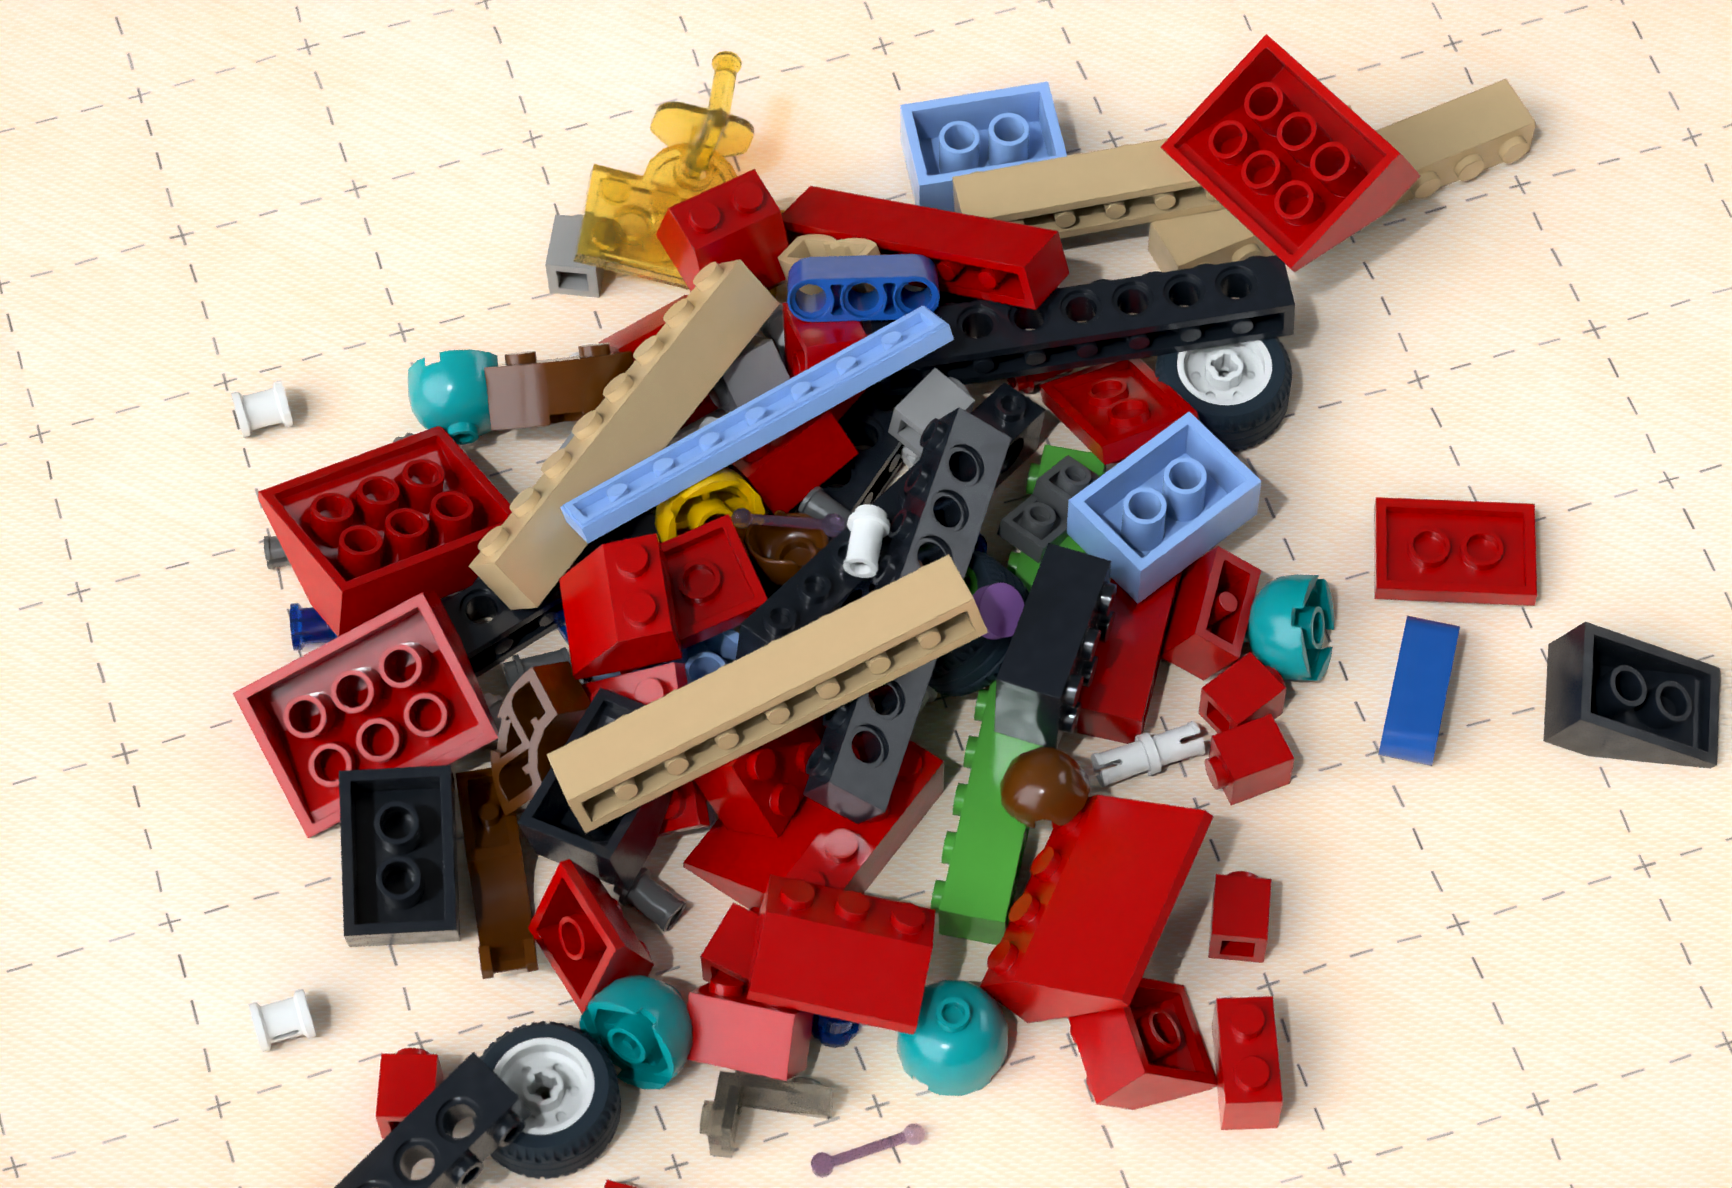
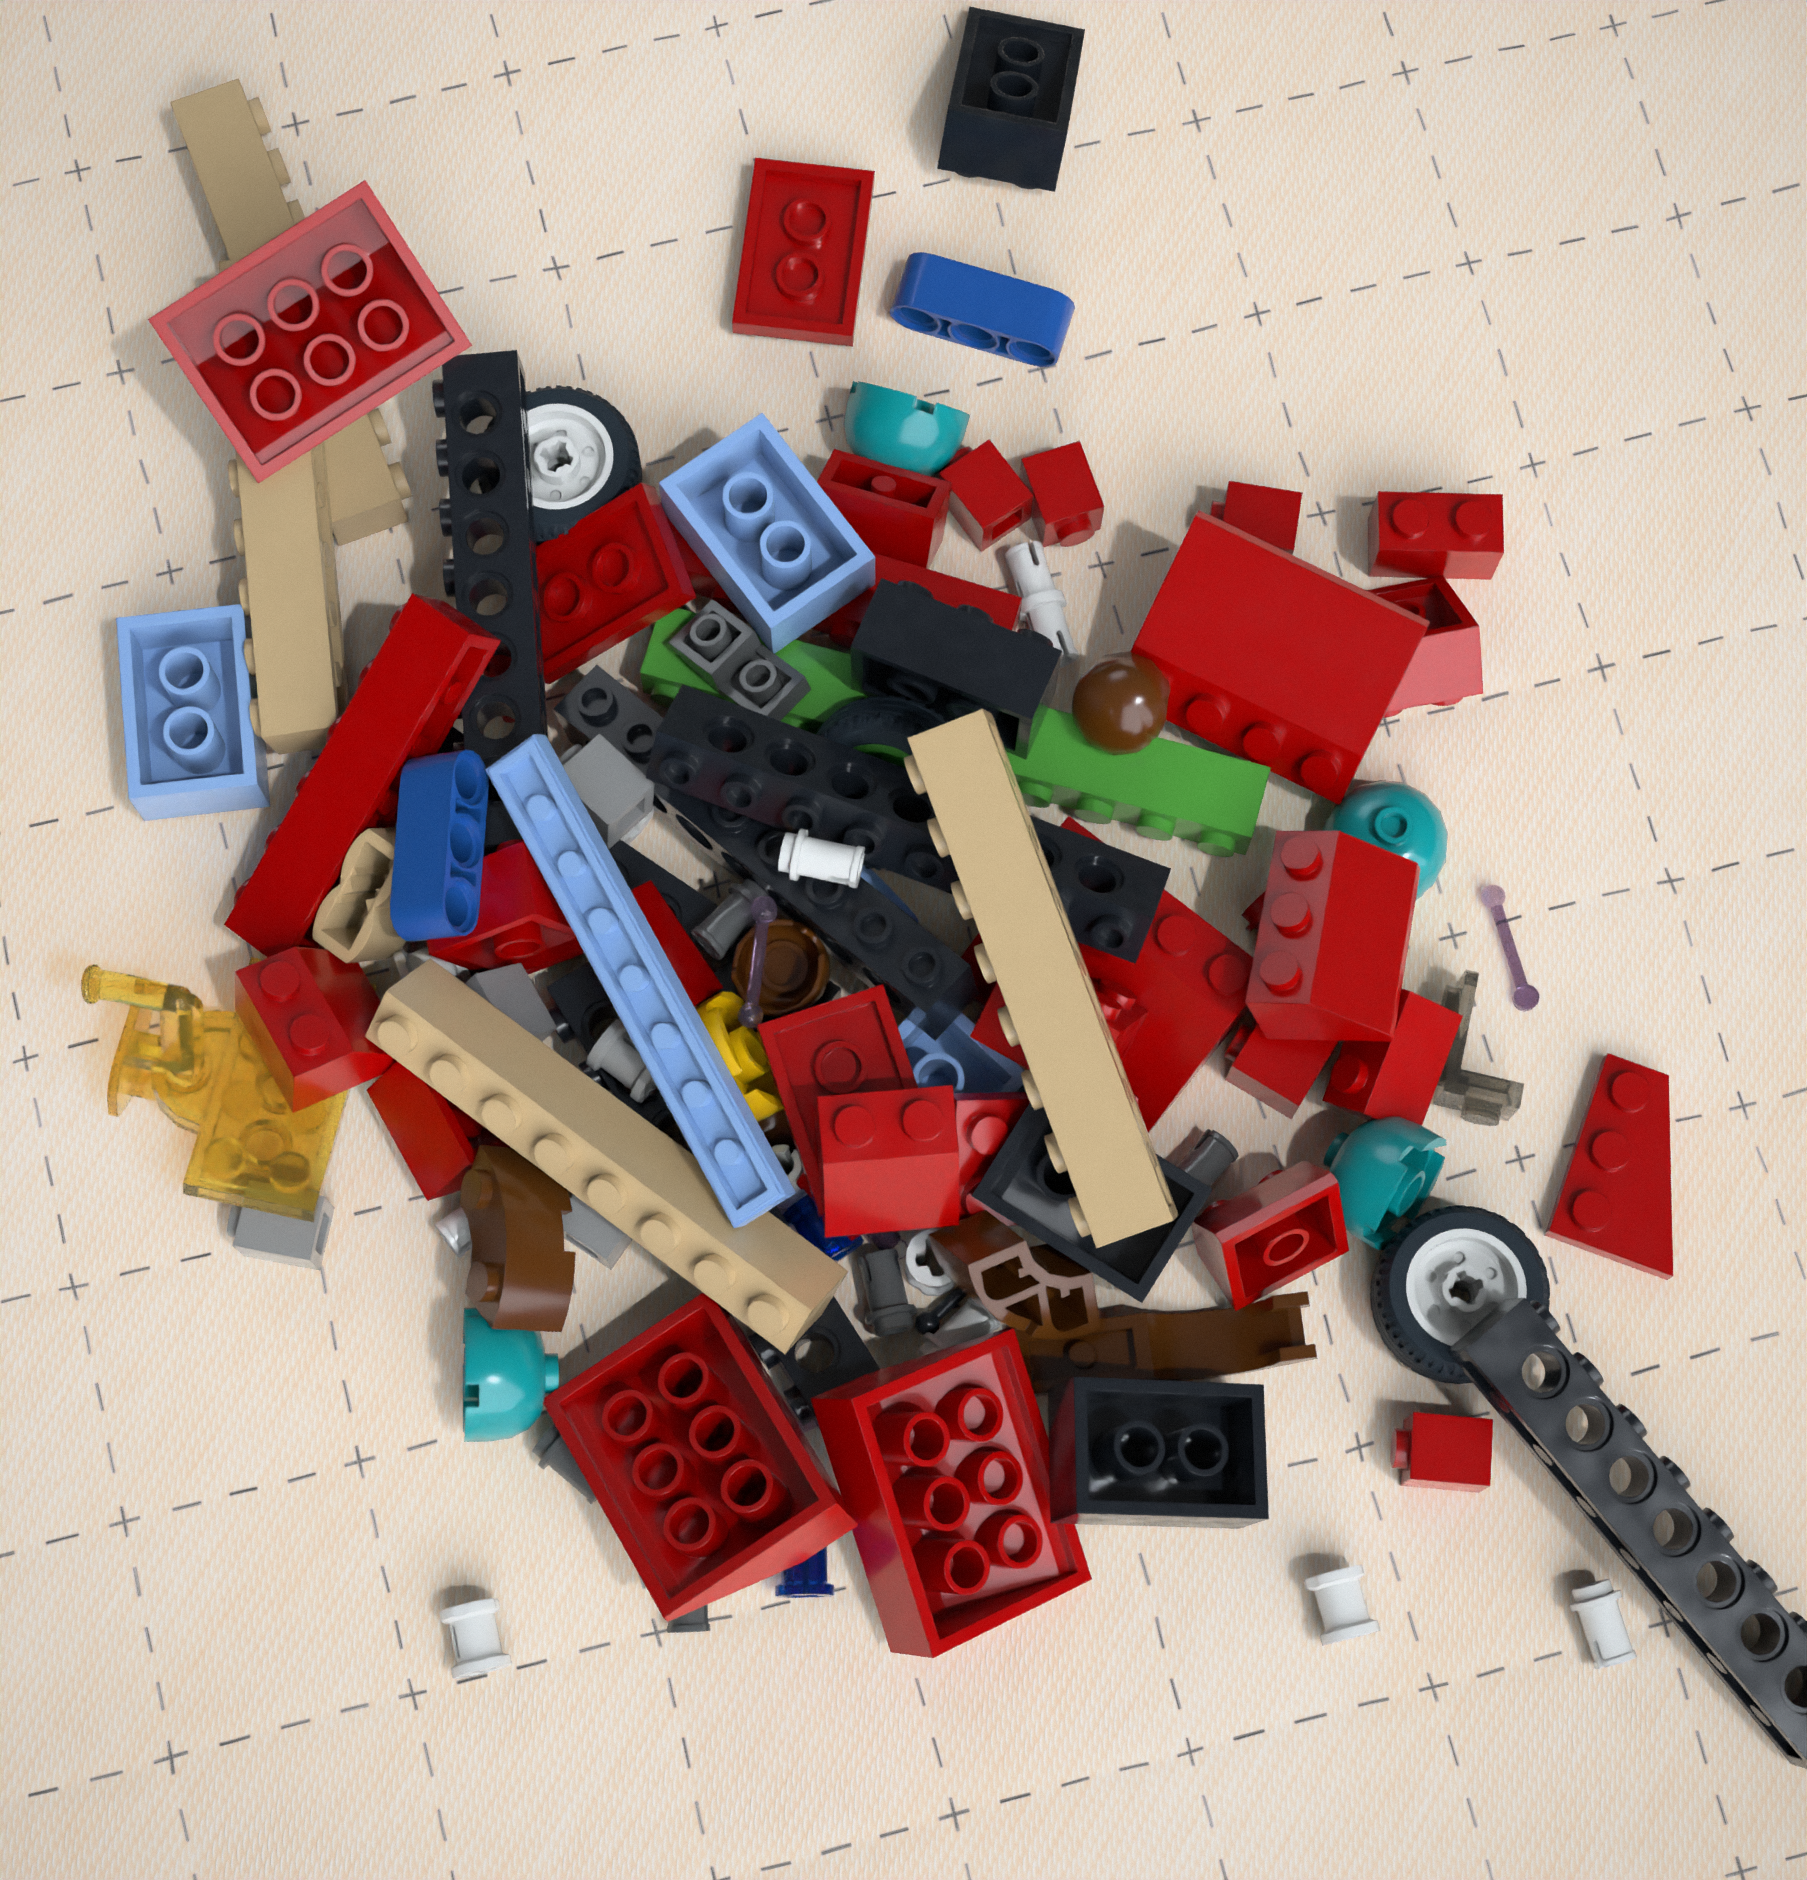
camera: 90 degrees left, 15 degrees up
(999, 608) = (918, 712): medium lavender tile -> none

